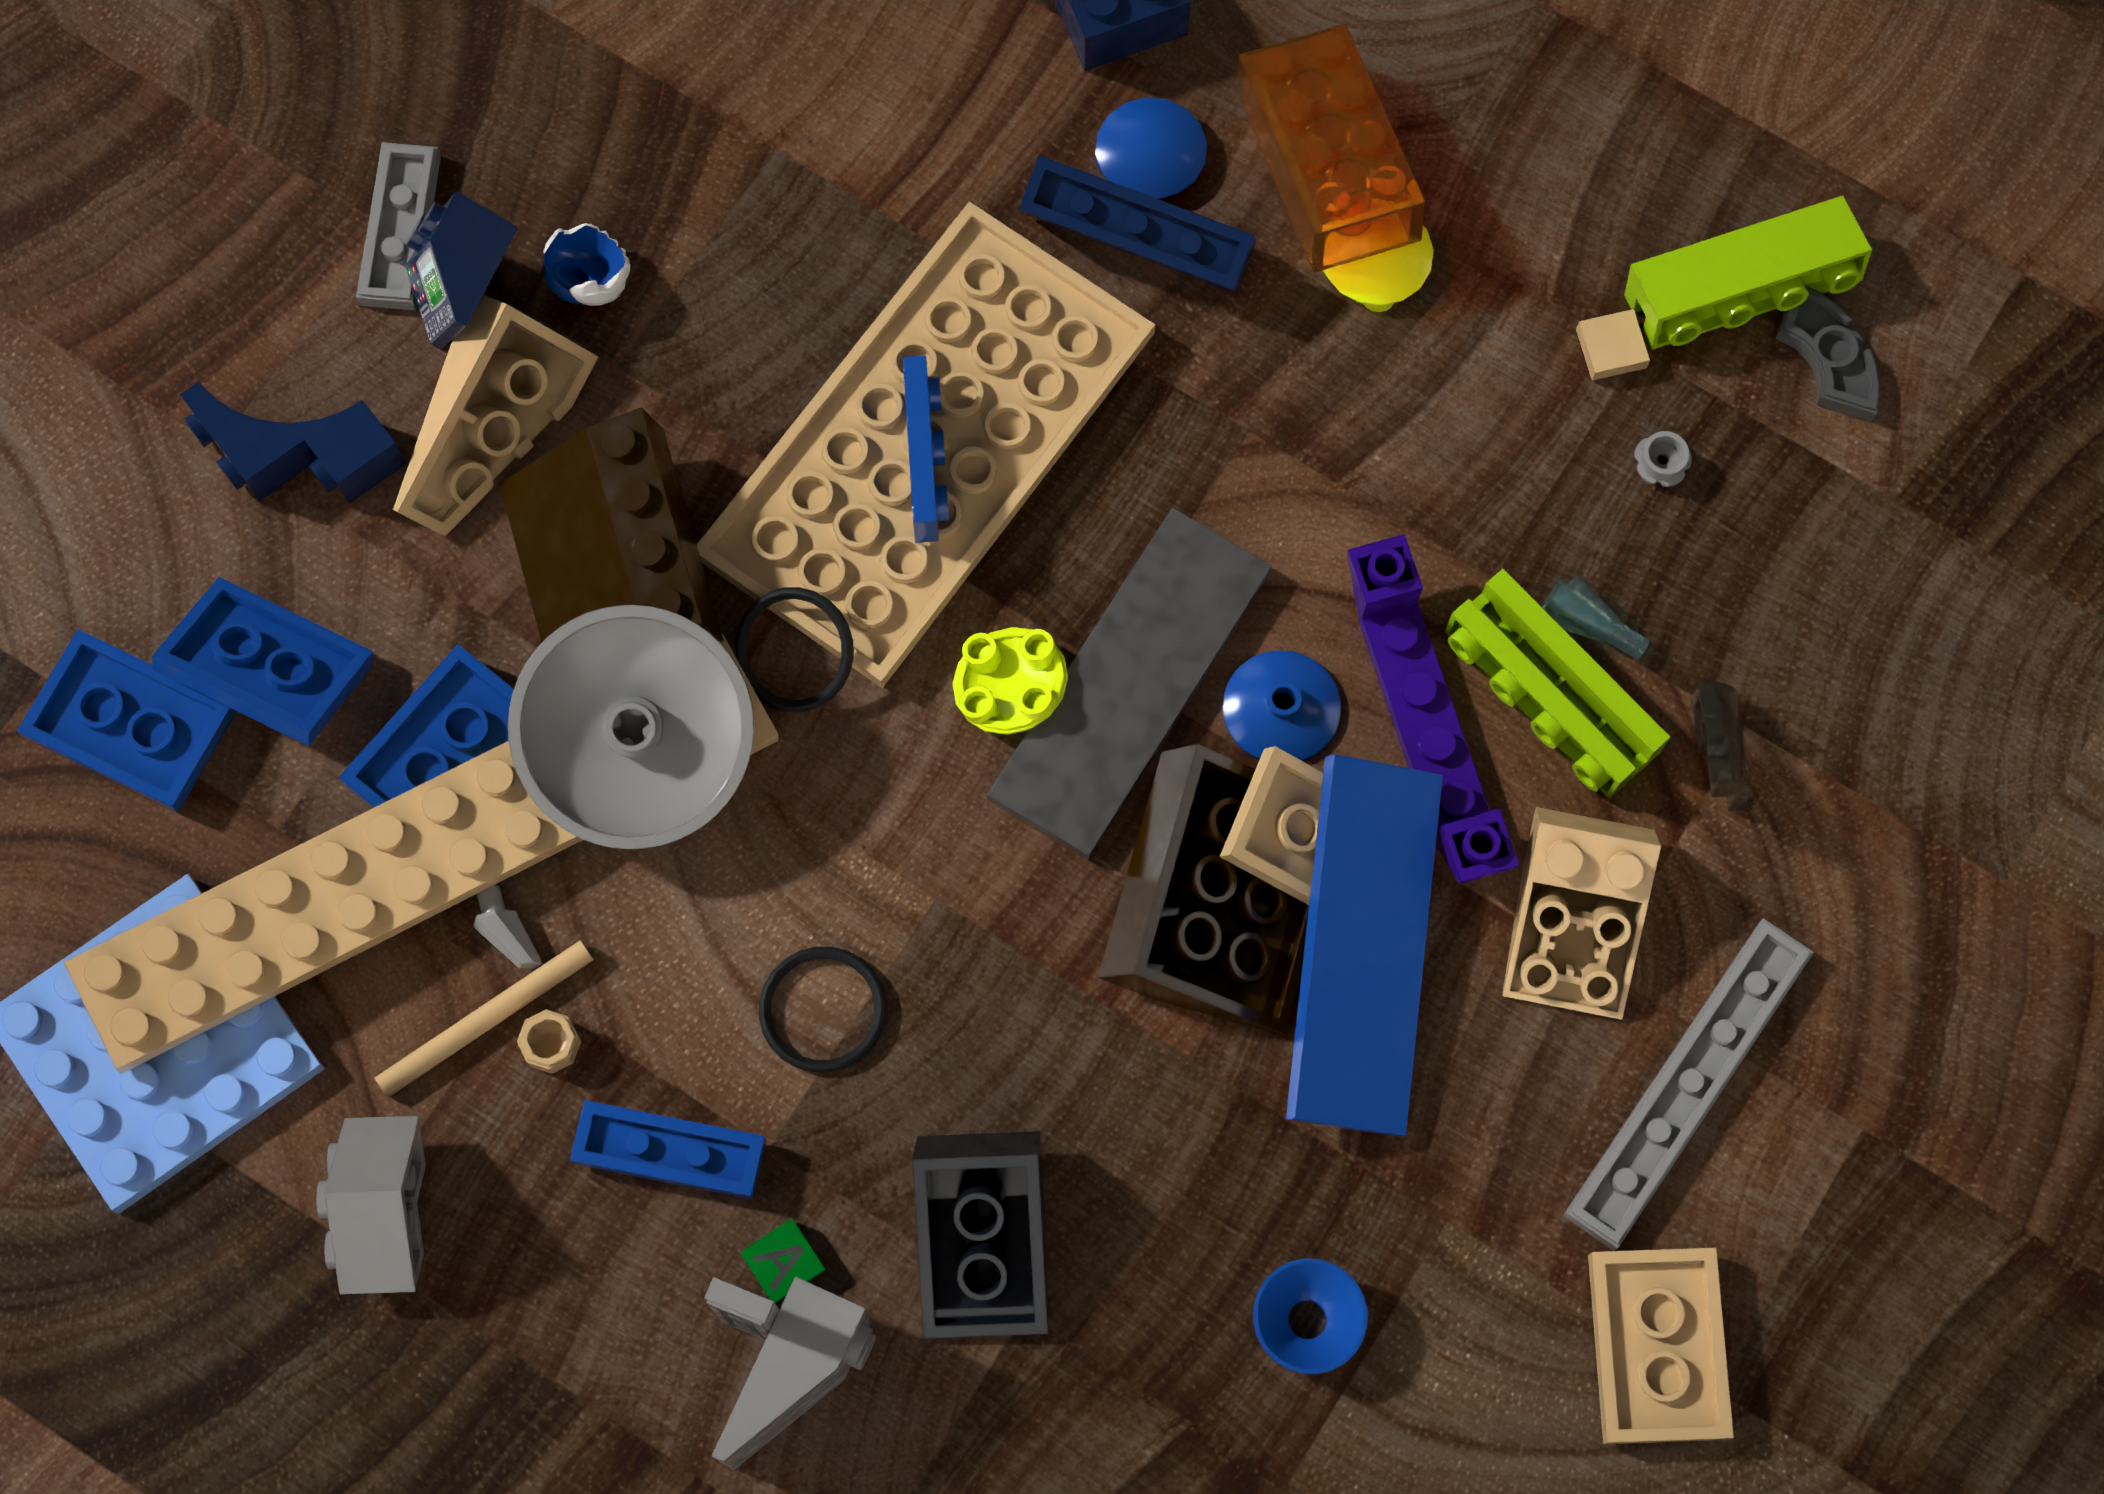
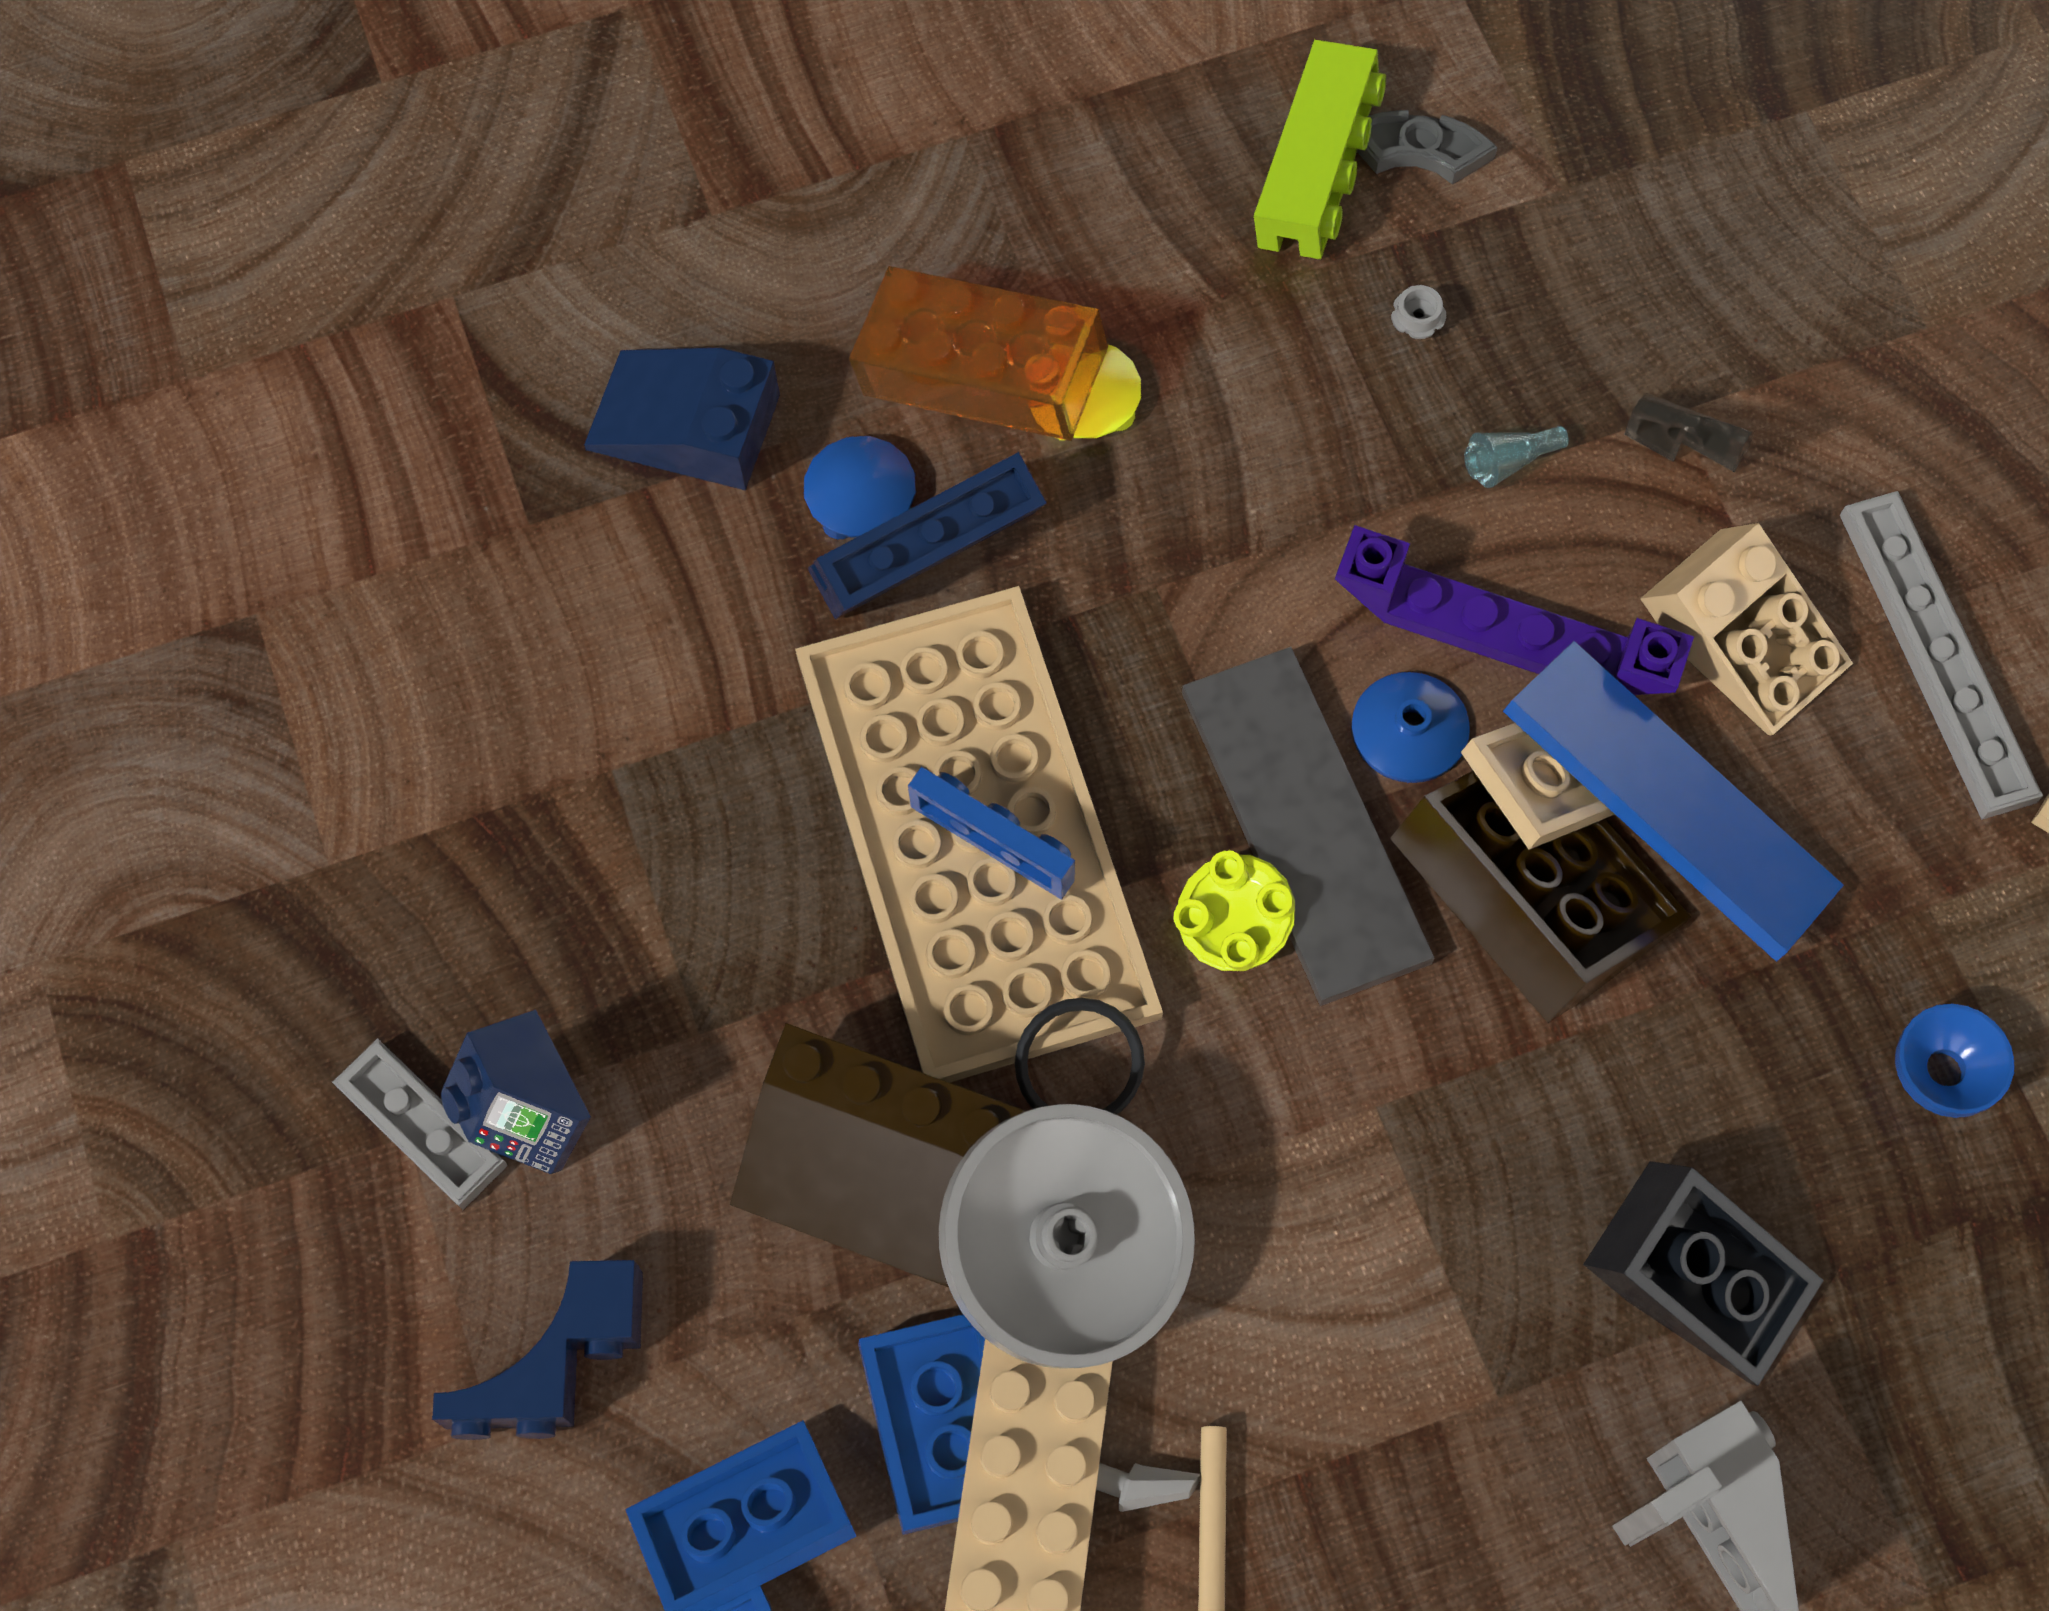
camera: 50 degrees left, 5 degrees down
(490, 401) = (656, 1166): tan wedge -> none
(549, 1041) = (1277, 1517): tan tile -> none
(585, 266) = (596, 990): blue hair -> none
(668, 1149) = (1448, 1482): blue plate -> none
(781, 1258) = (1613, 1456): green tile -> none
(851, 1057) = (1377, 1315): black tyre -> none
(1555, 685) = (1549, 513): lime brick -> none
(1612, 344) = (1296, 281): tan tile -> none

